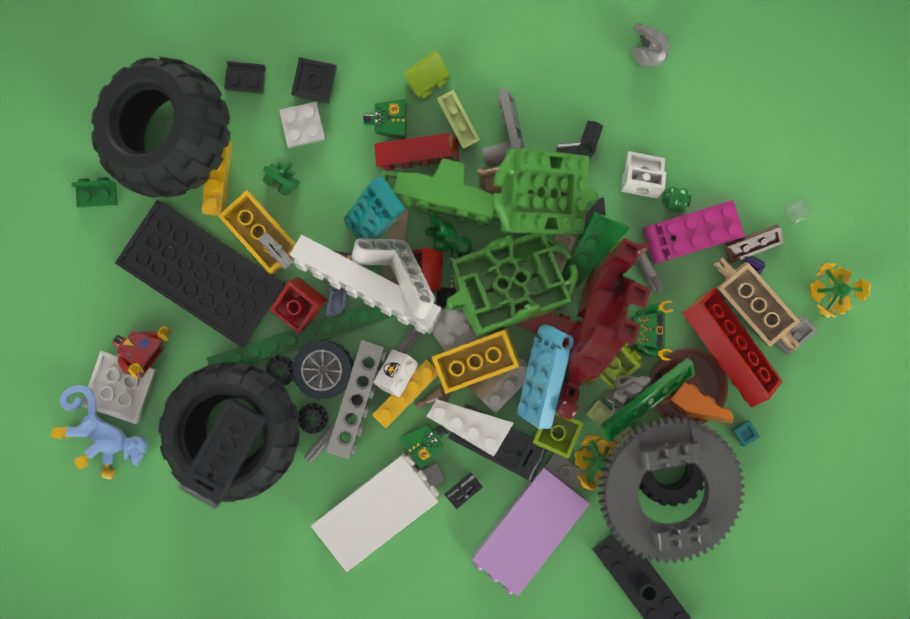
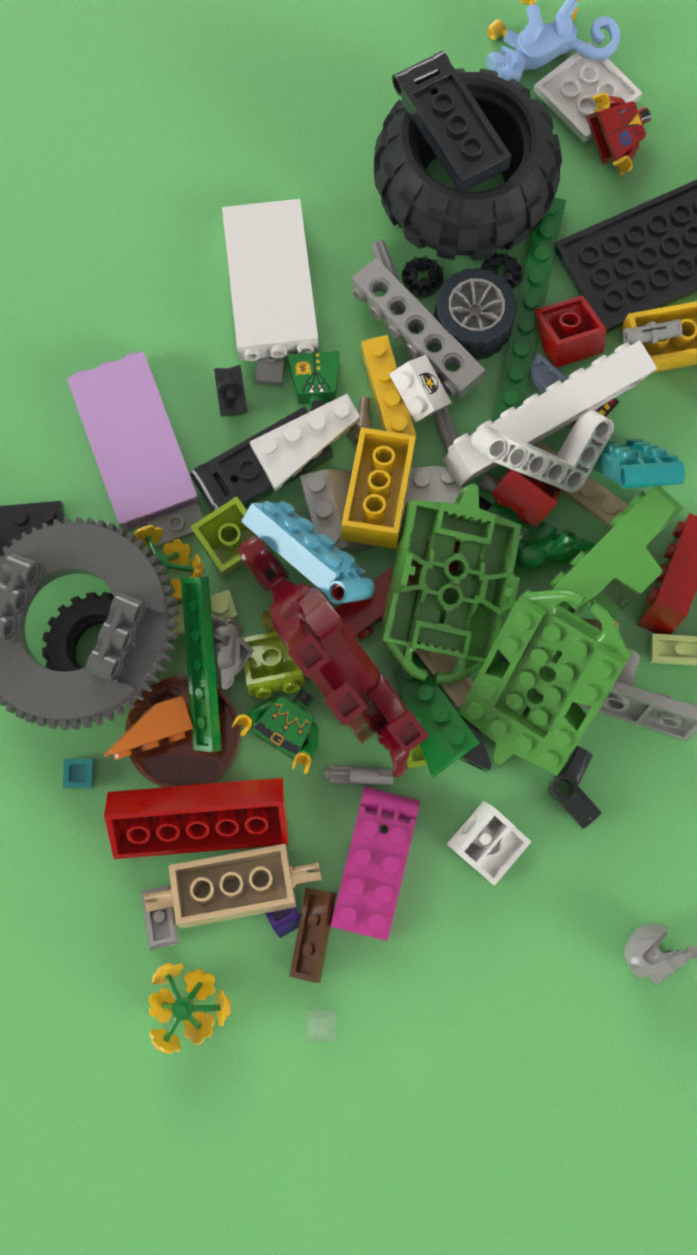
camera: 120 degrees right, 10 degrees down
(676, 199) = (432, 867): green piece -> none

